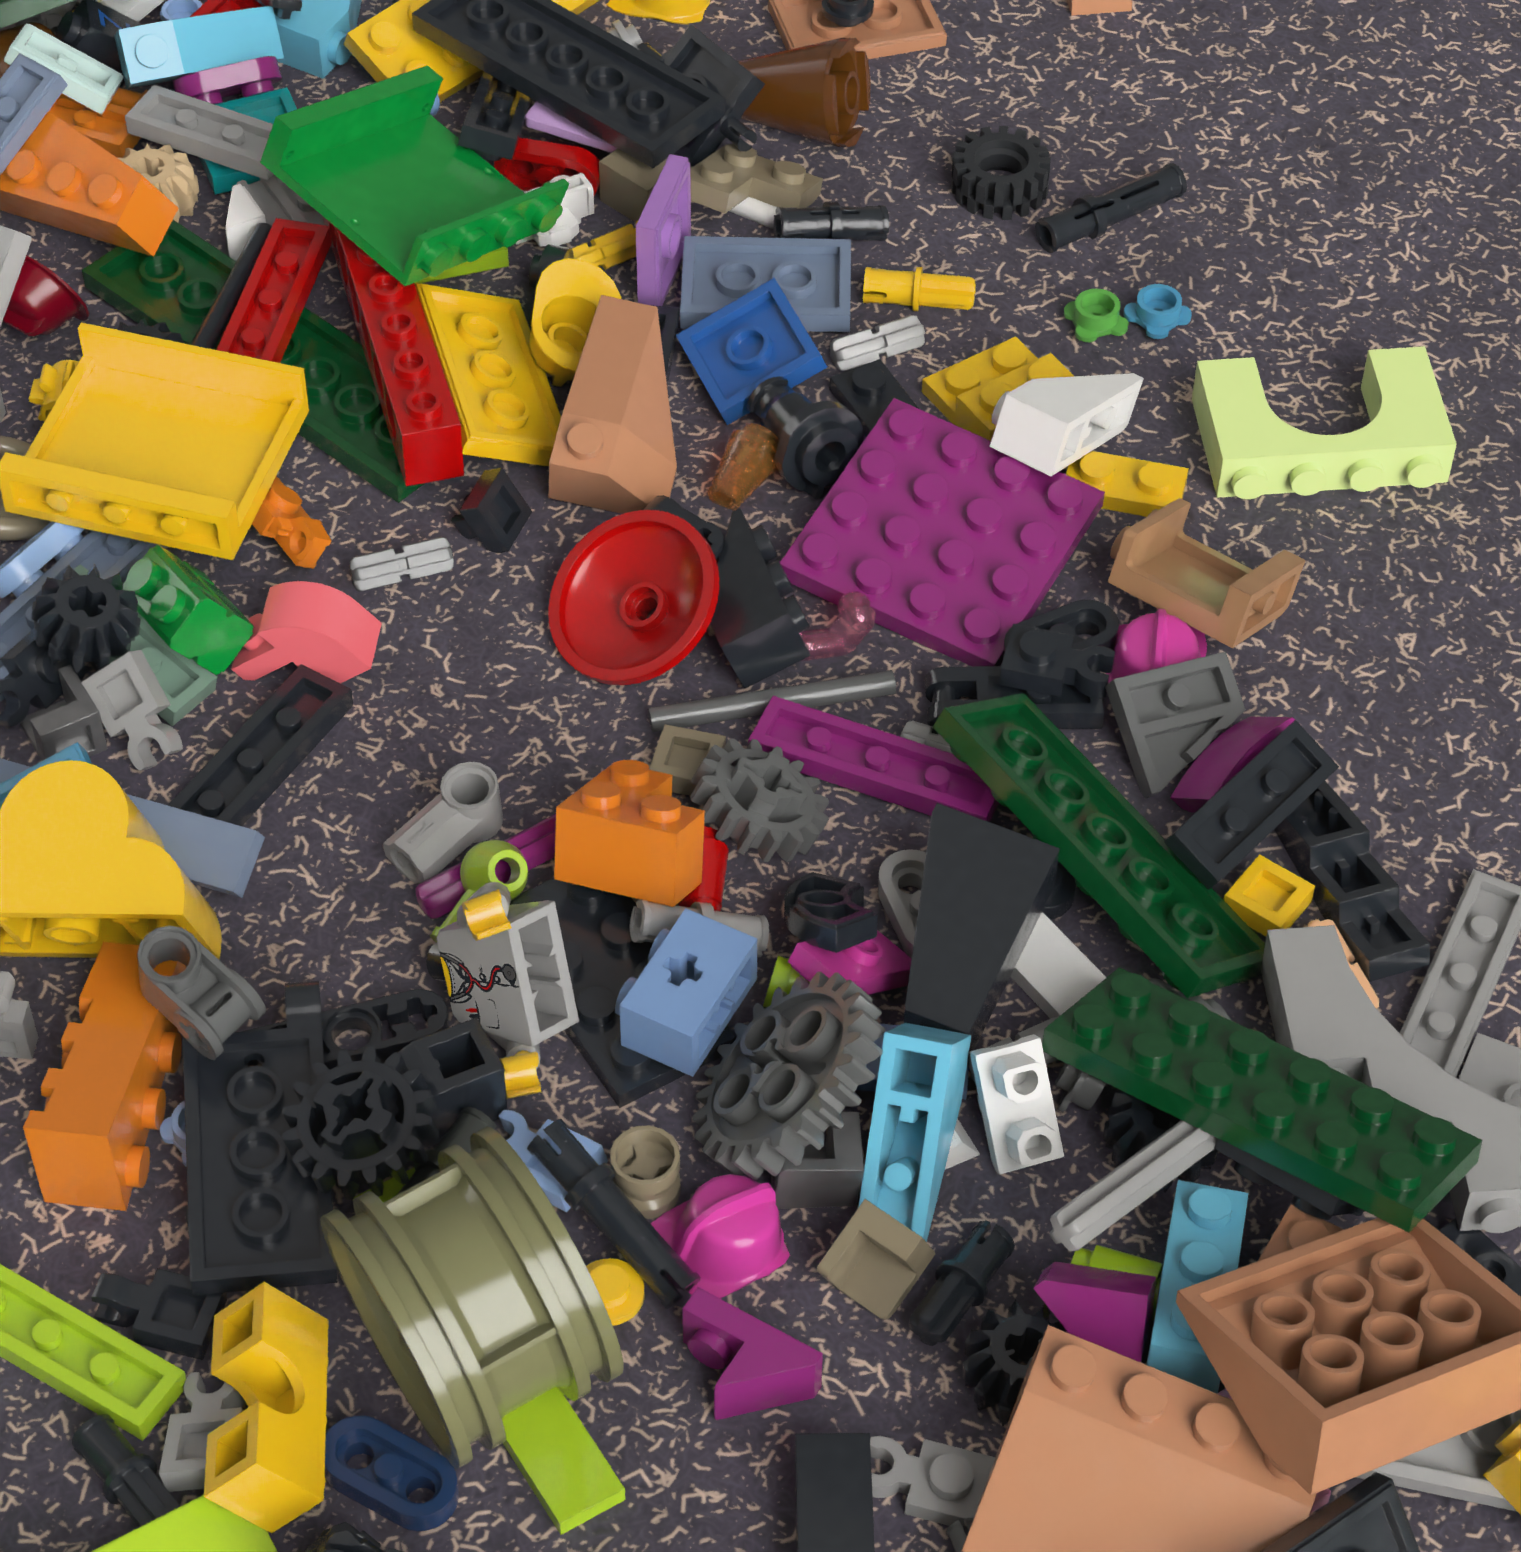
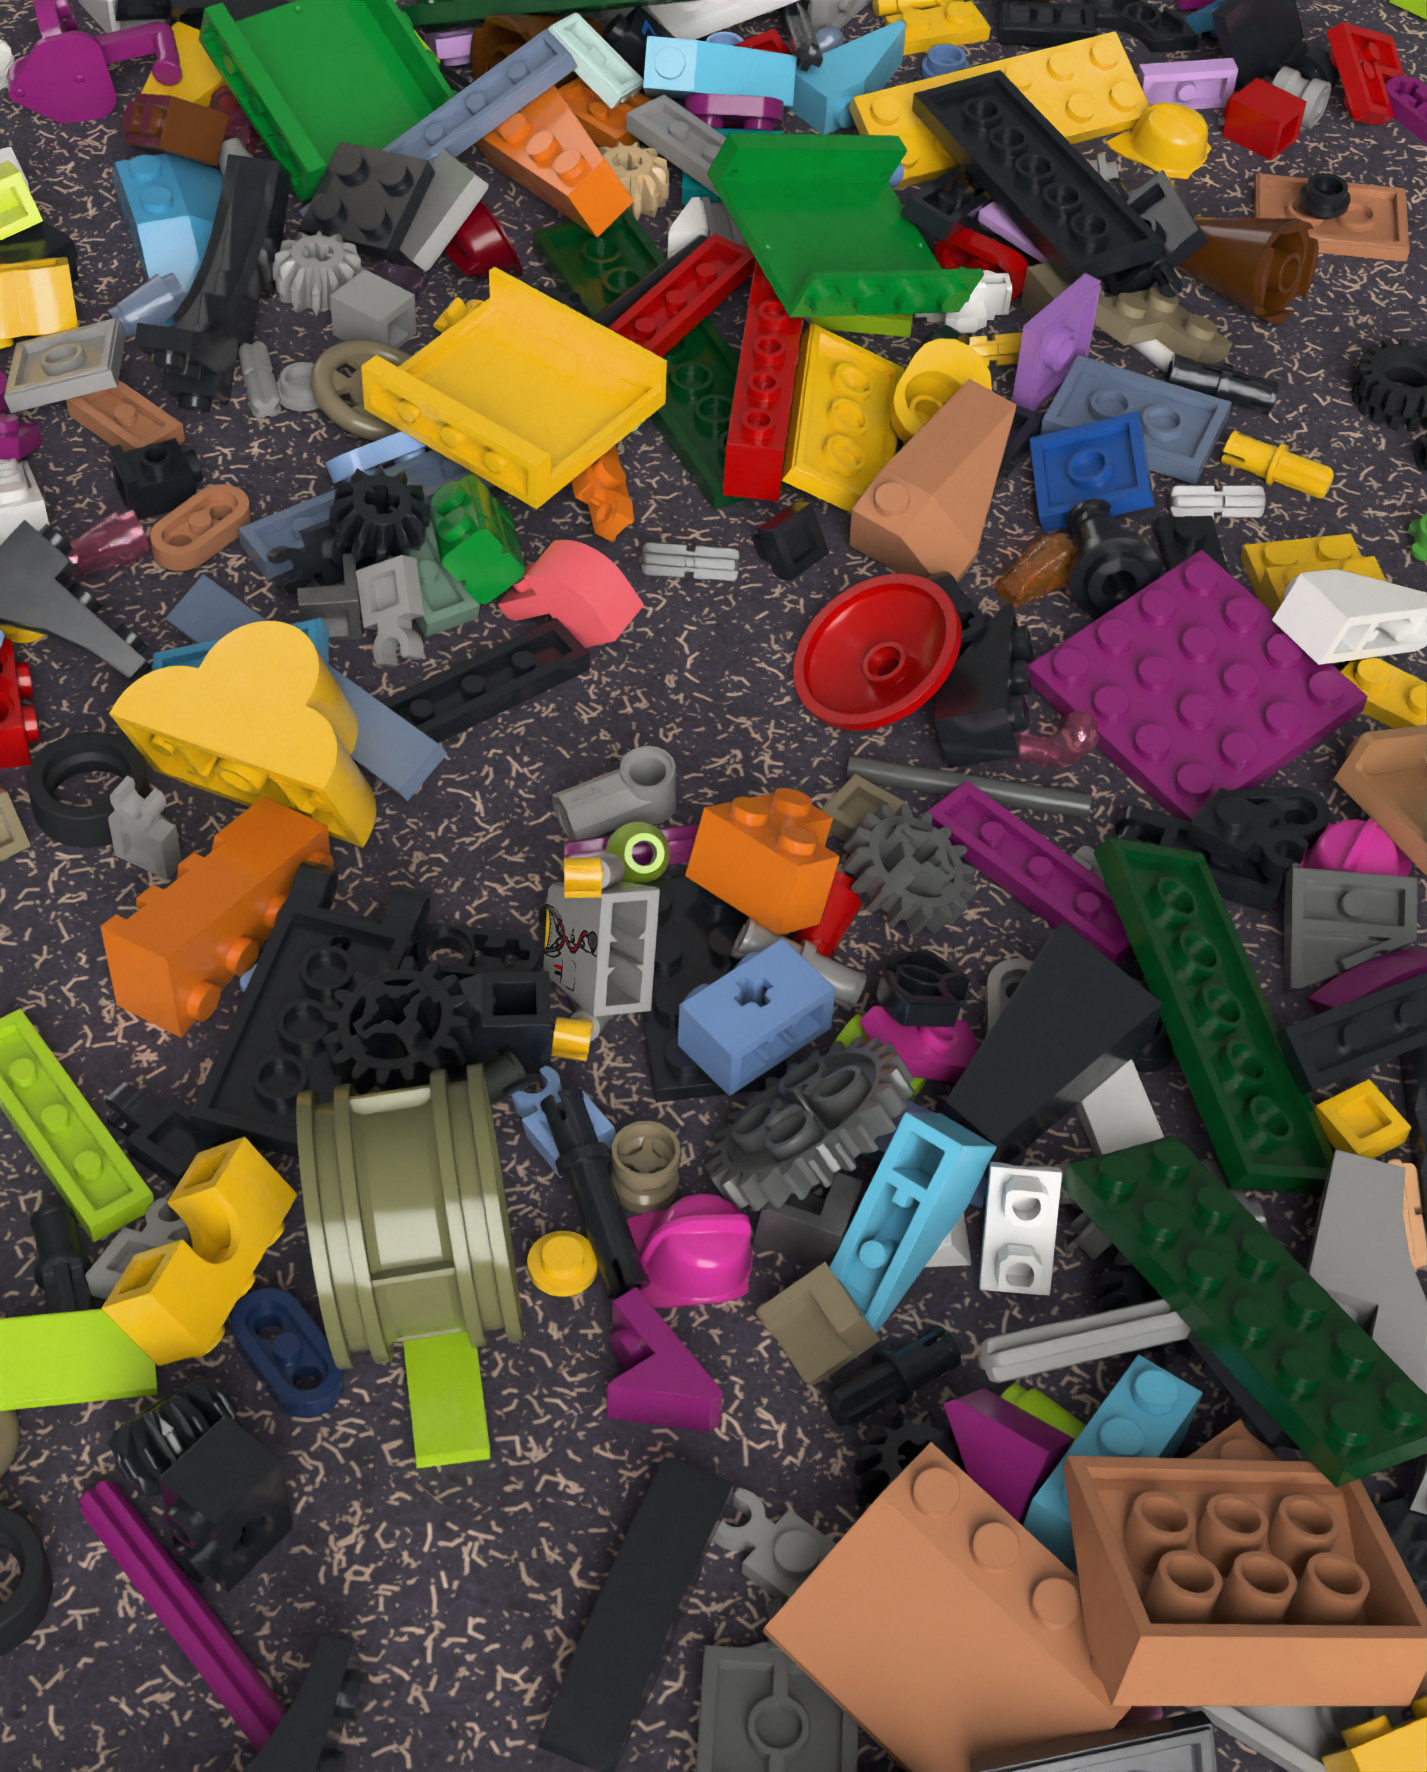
camera: 20 degrees right, 0 degrees up
(202, 1001) = (311, 868): dark grey piece -> none

